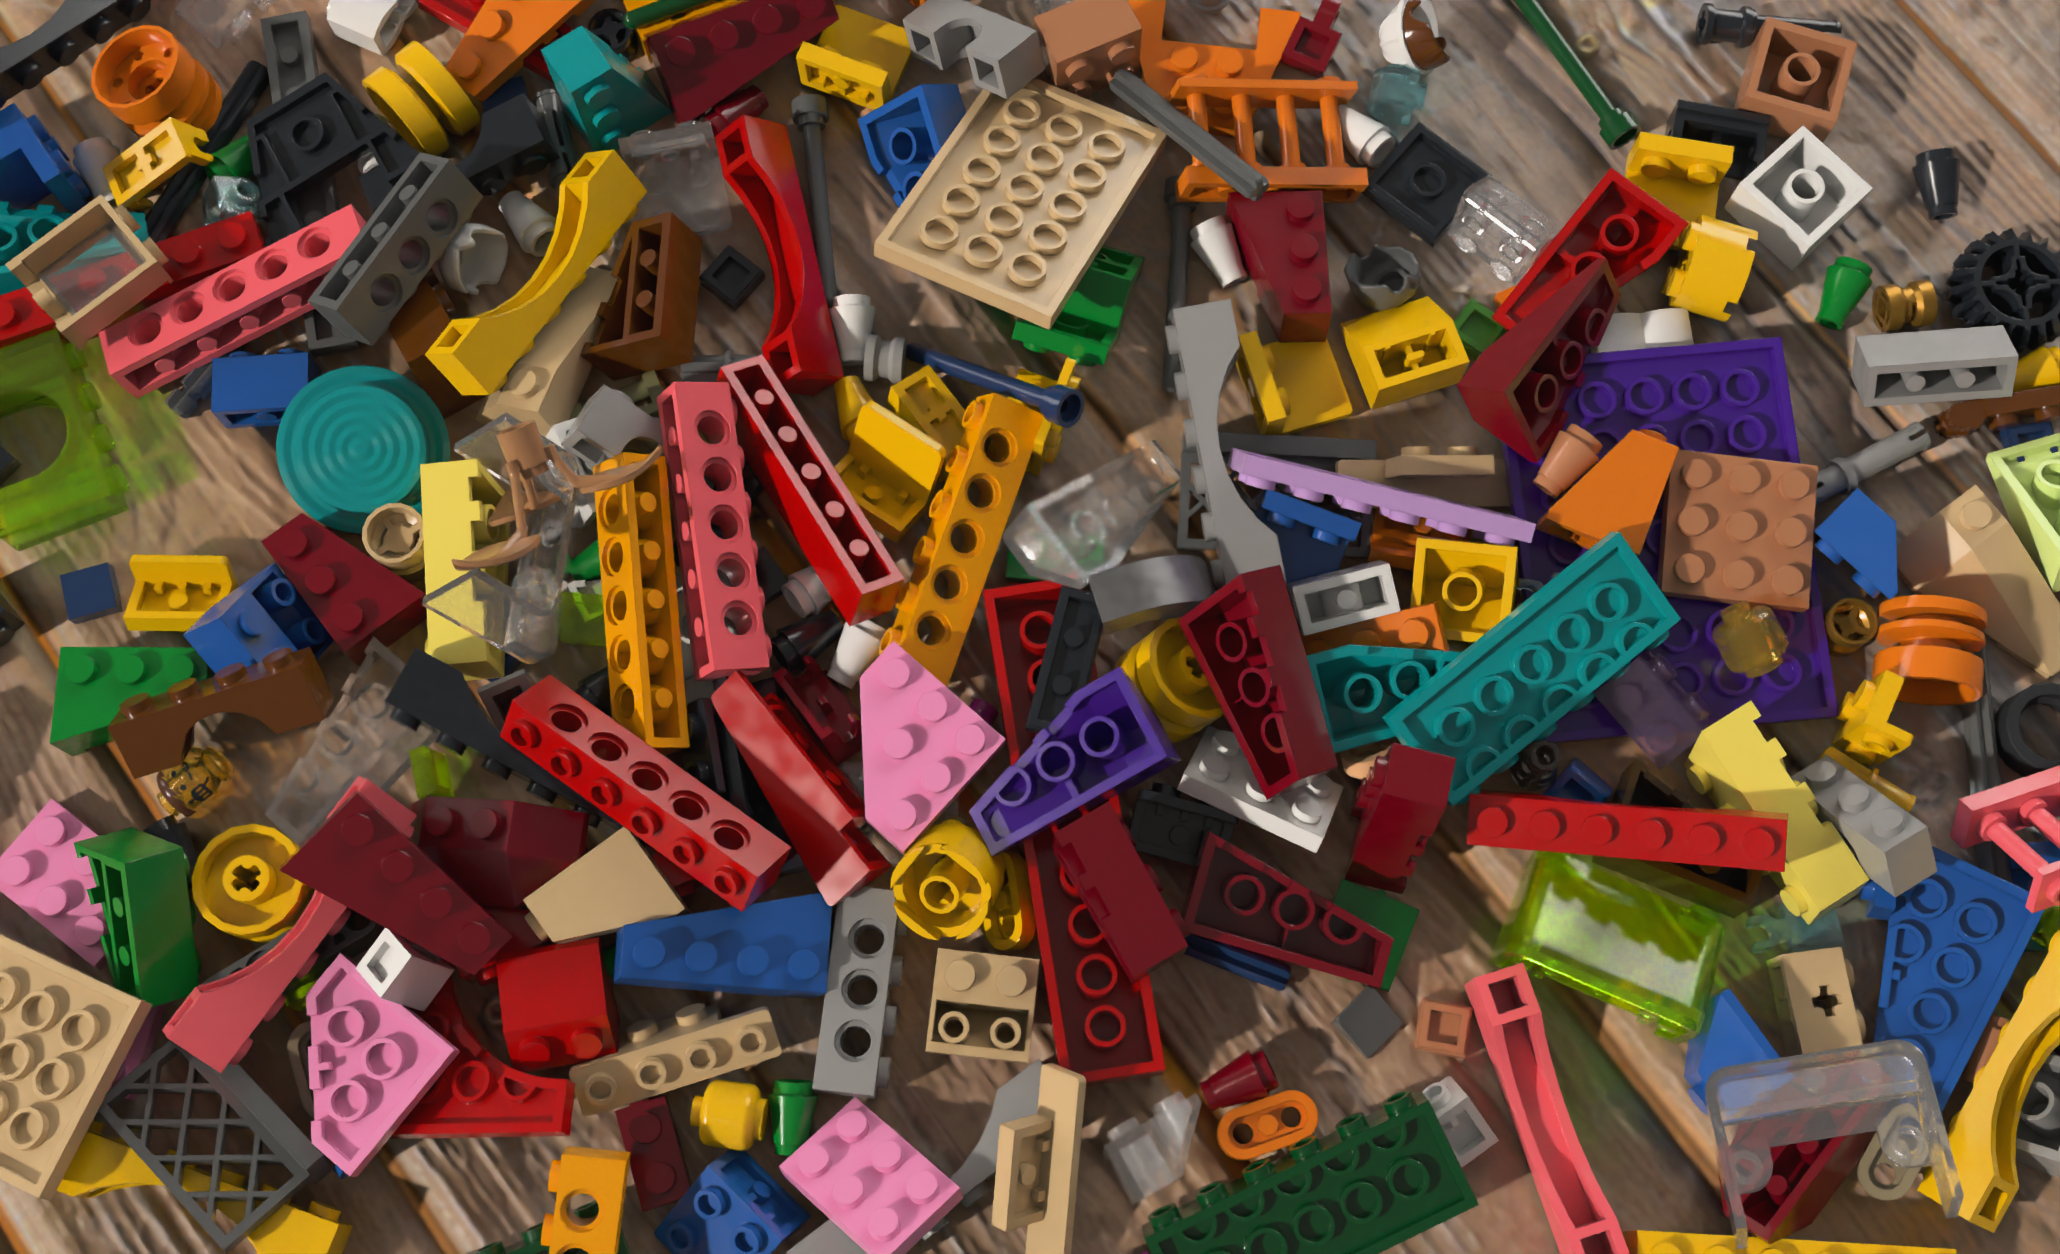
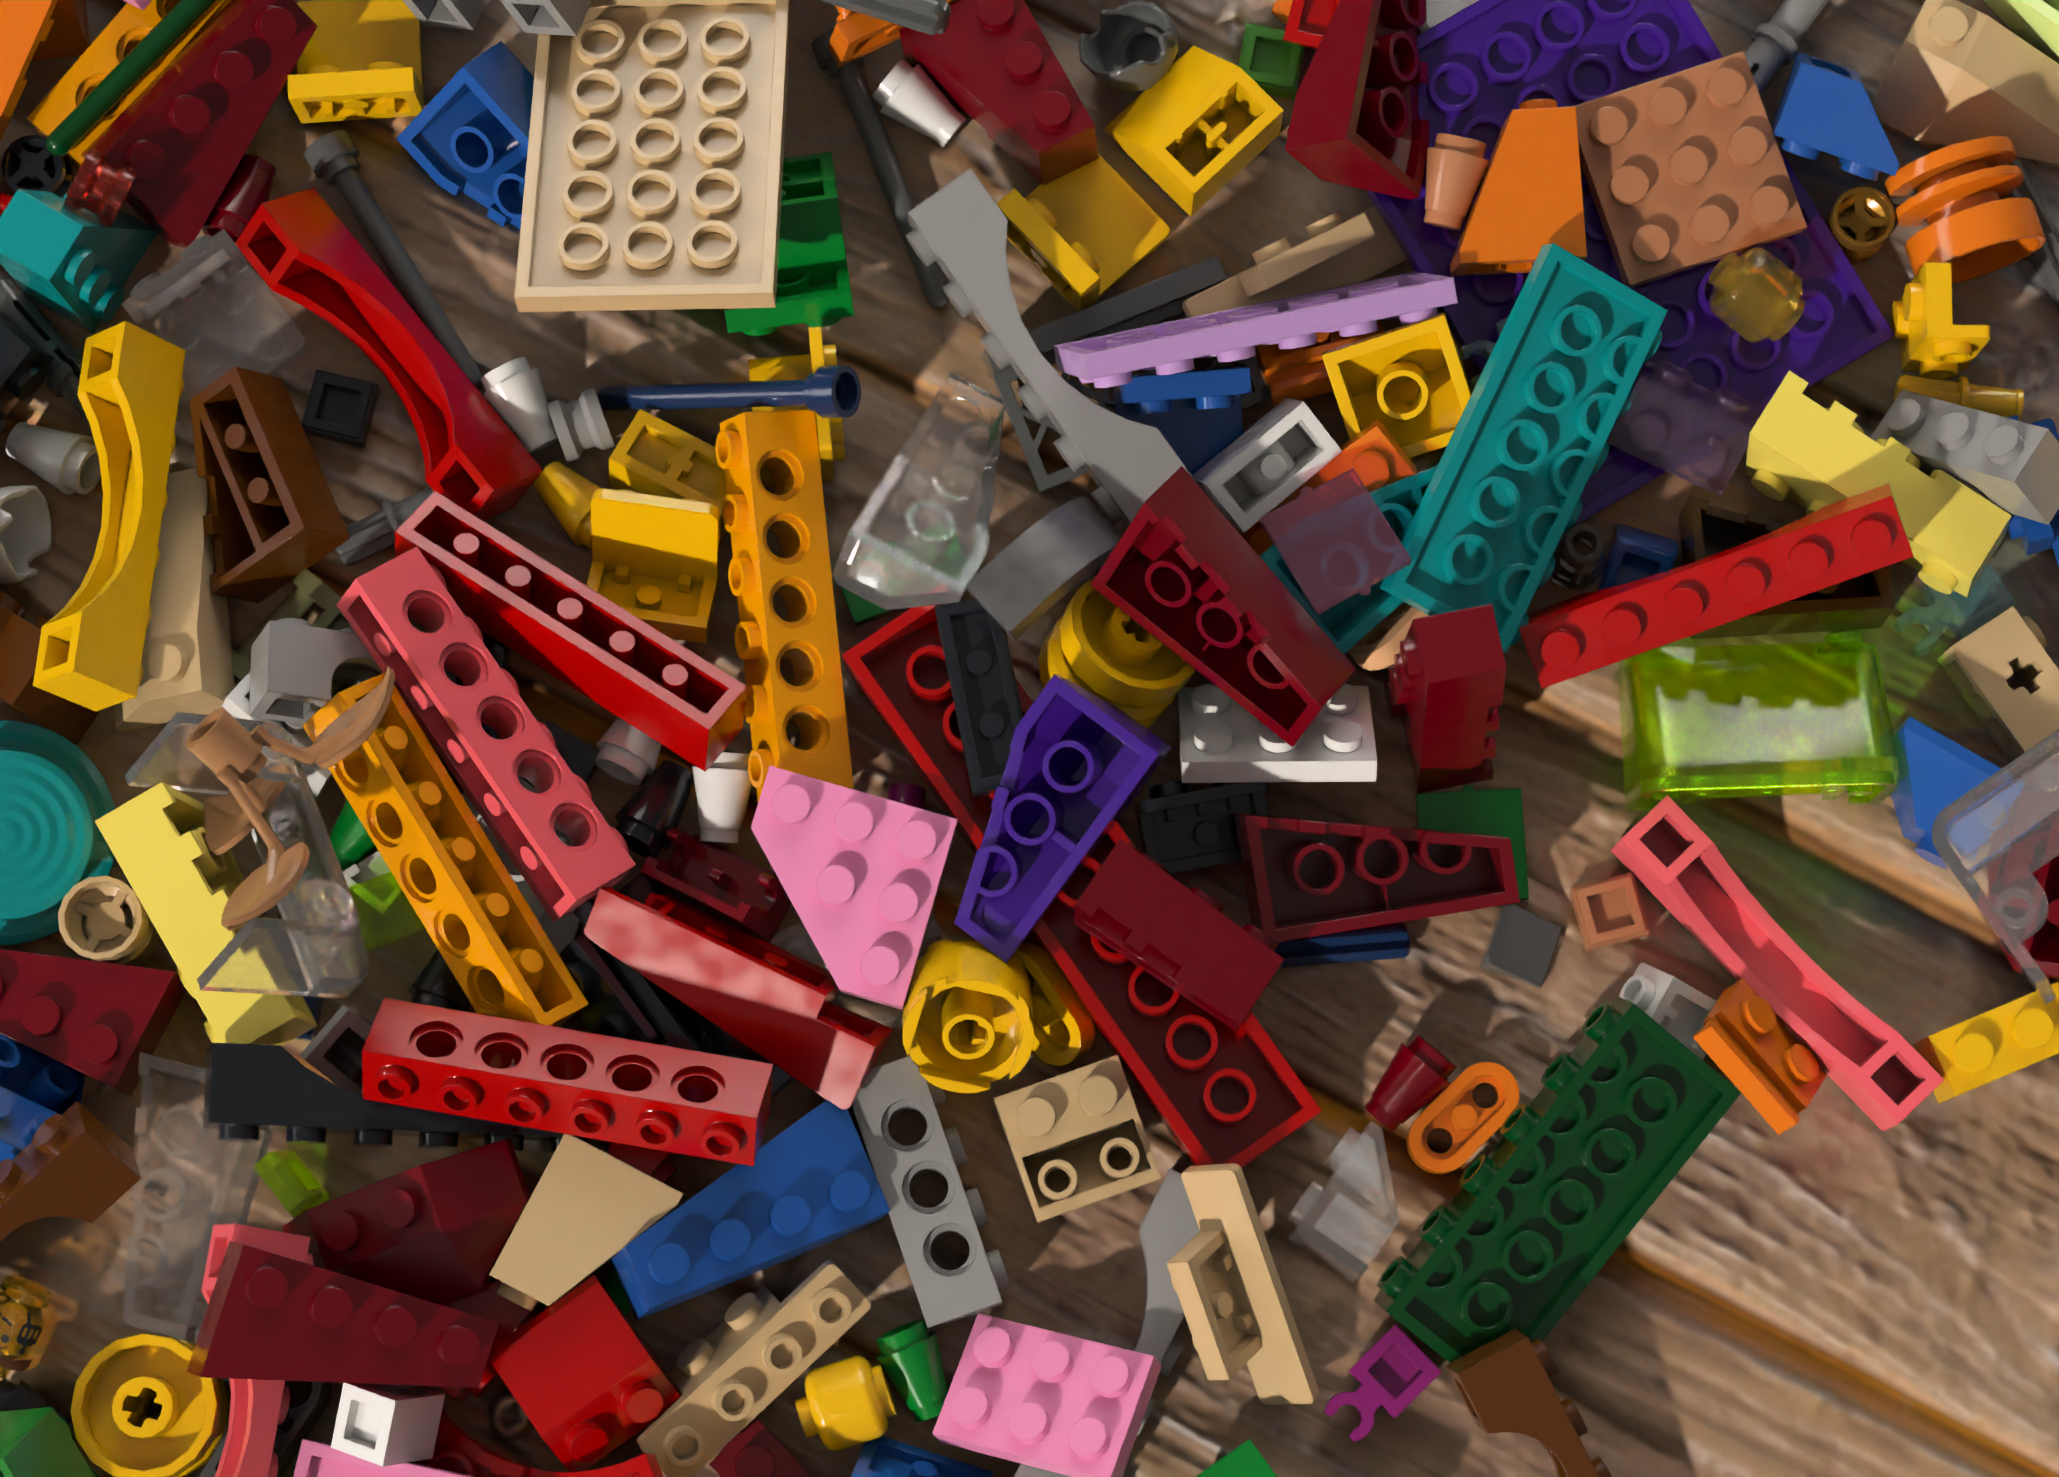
camera: 25 degrees left, 5 degrees up
(639, 53) = (100, 188): none -> clear red wheel
(1365, 668) = (1335, 541): none -> clear pink piece
(1505, 1185) = (1760, 1056): none -> orange plate

